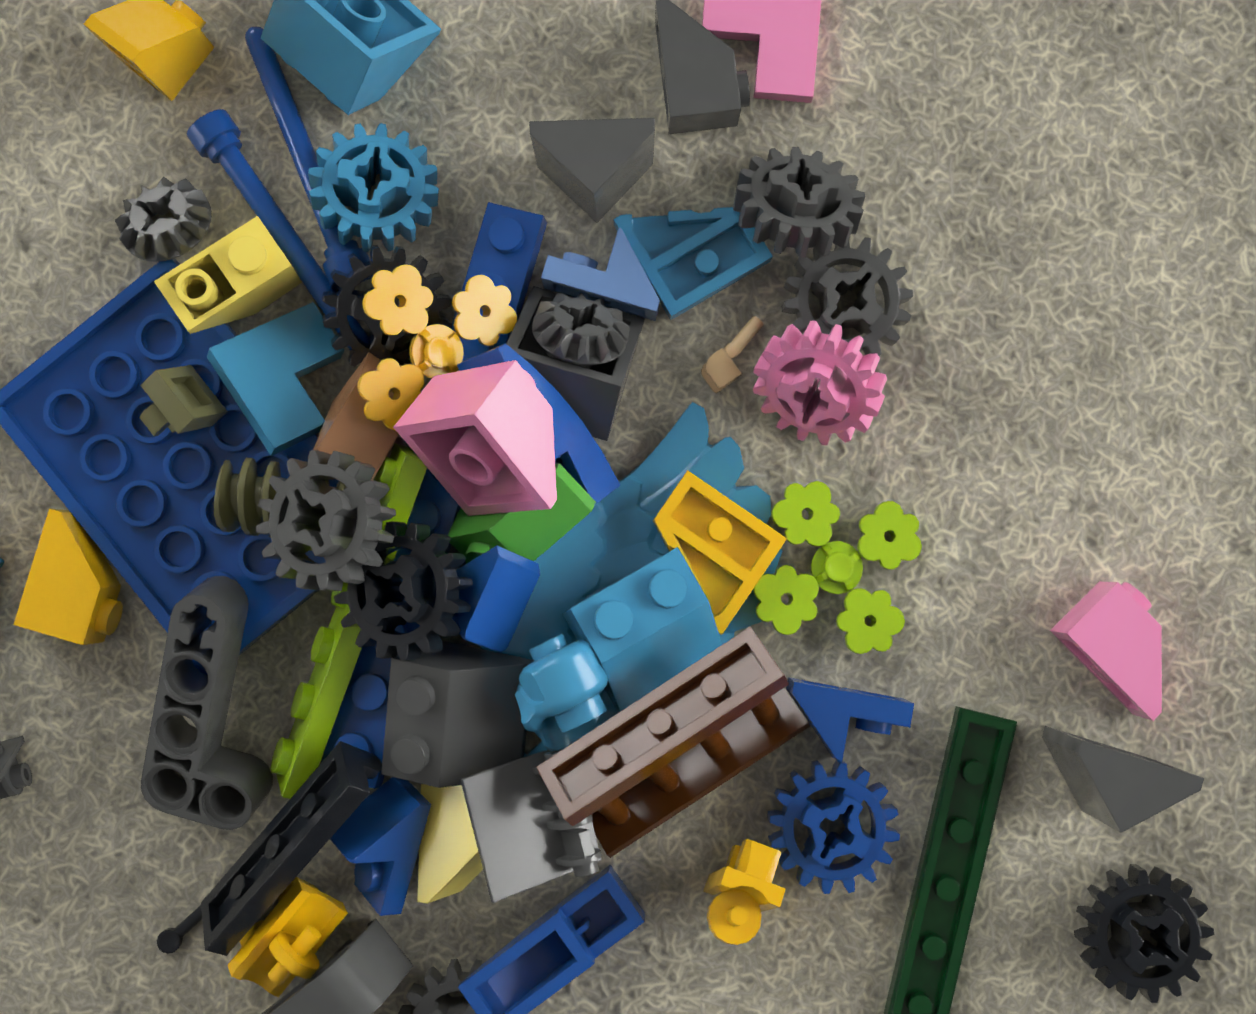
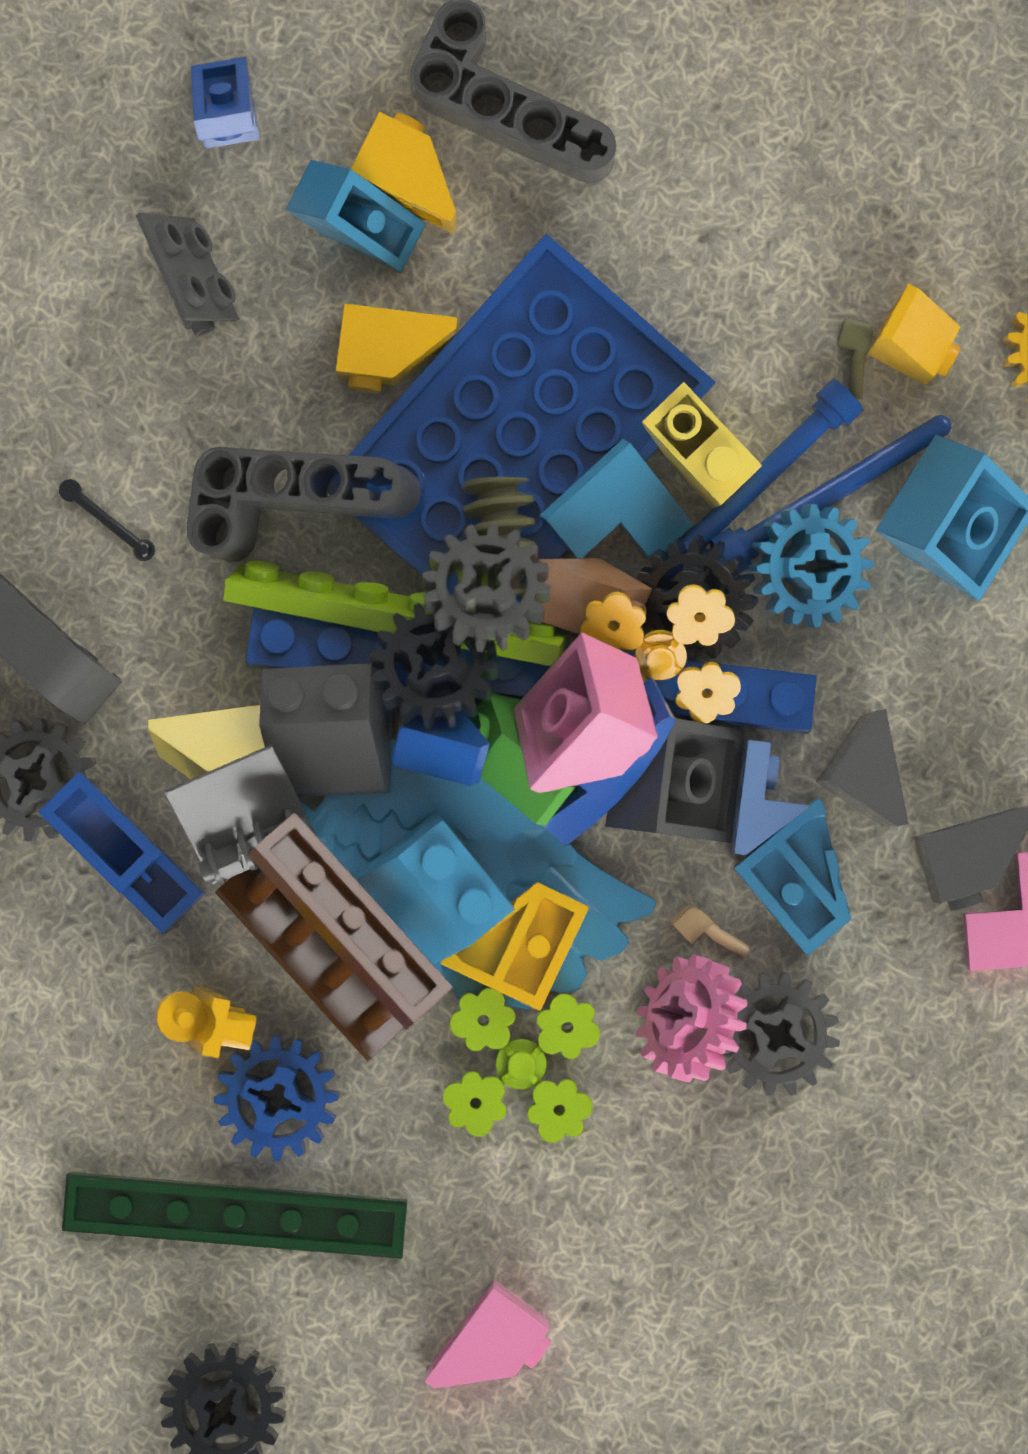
camera: 80 degrees right, 0 degrees up
(150, 106) = (857, 337): none -> olive hand
(165, 237) = (731, 380): dark grey gear -> none
(180, 401) = (575, 423): olive tile -> none
(287, 845) = (181, 591): black hinge -> none
(288, 938) = (94, 604): yellow hips -> none
(384, 843) = (200, 681): blue slope -> none
(561, 691) = (365, 823): dark azure head -> none
(596, 342) = (690, 797): dark grey gear -> none
(798, 202) = (862, 972): dark grey gear -> none
(830, 709) = (386, 1077): blue slope -> none
(1116, 783) = (362, 1353): dark grey slope -> none

